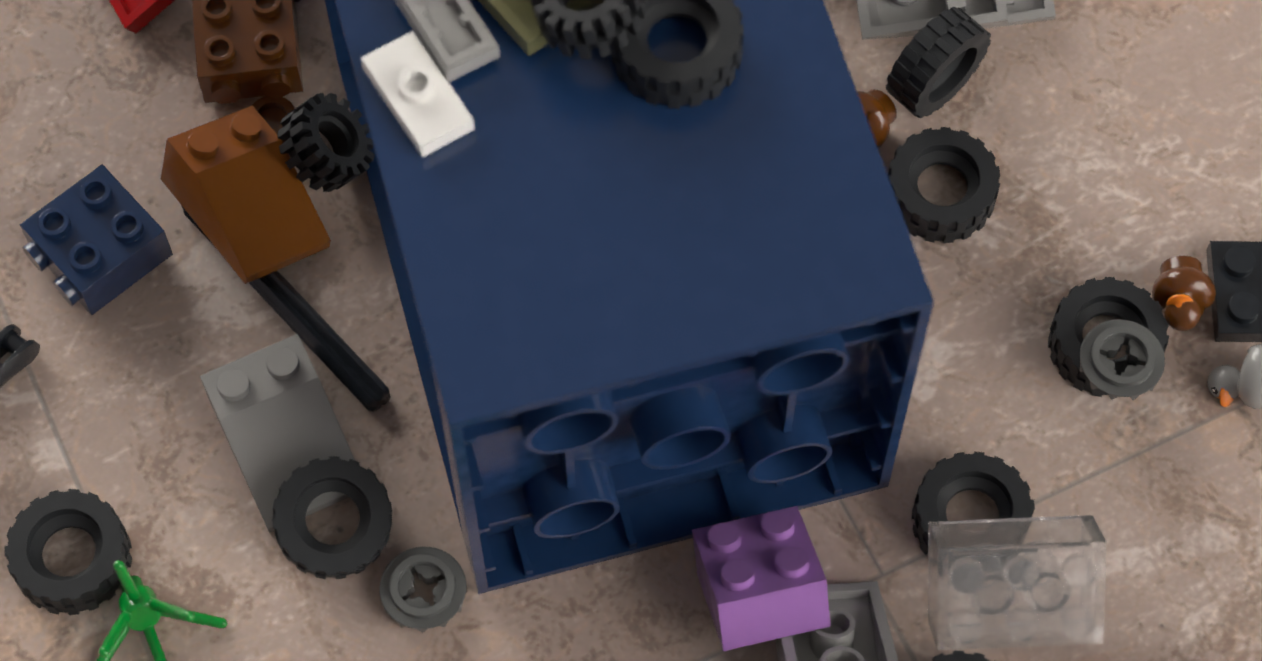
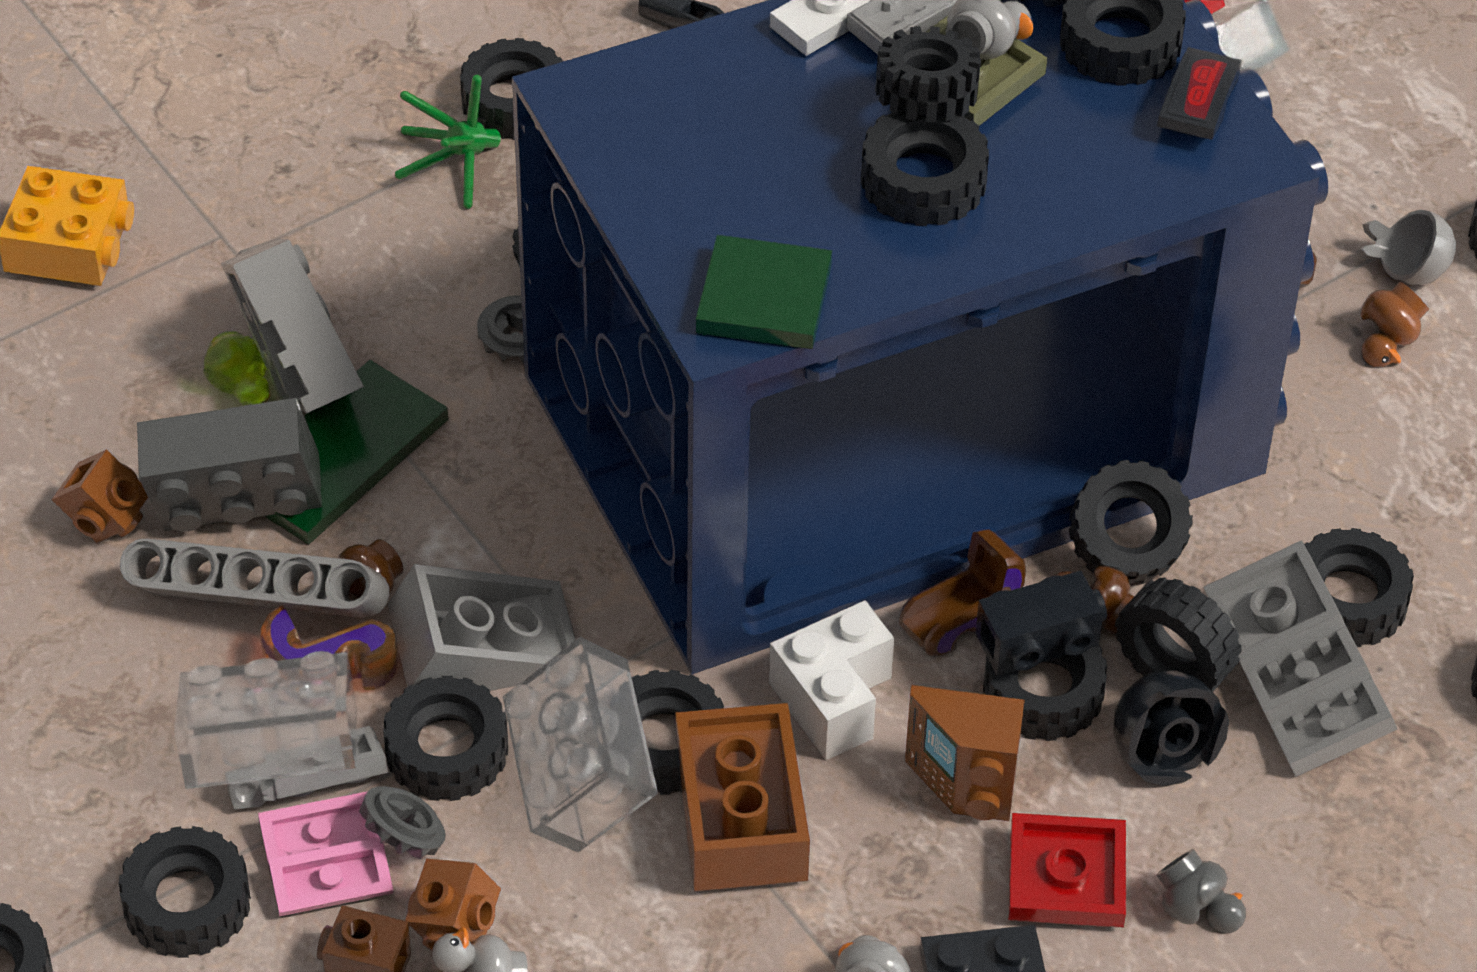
camera: 80 degrees right, 15 degrees down
(761, 578) = (554, 548): medium lavender brick -> none
(827, 214) = (764, 291): none -> dark green tile
(926, 161) = (1040, 622): none -> black brick
(957, 365) = (828, 676): none -> white brick
(1013, 96) = (1169, 726): none -> black cylinder
(1051, 248) = (965, 748): none -> dark orange slope
(1078, 448) = (742, 797): none -> dark orange slope
(1097, 299) = (893, 797): black tyre -> none
(1142, 350) = (829, 810): dark grey gear -> none
(1153, 205) = (1067, 870): none -> red plate
(1183, 292) = (962, 892): reddish brown animal -> none
(1186, 111) = (1200, 884): none -> dark grey animal

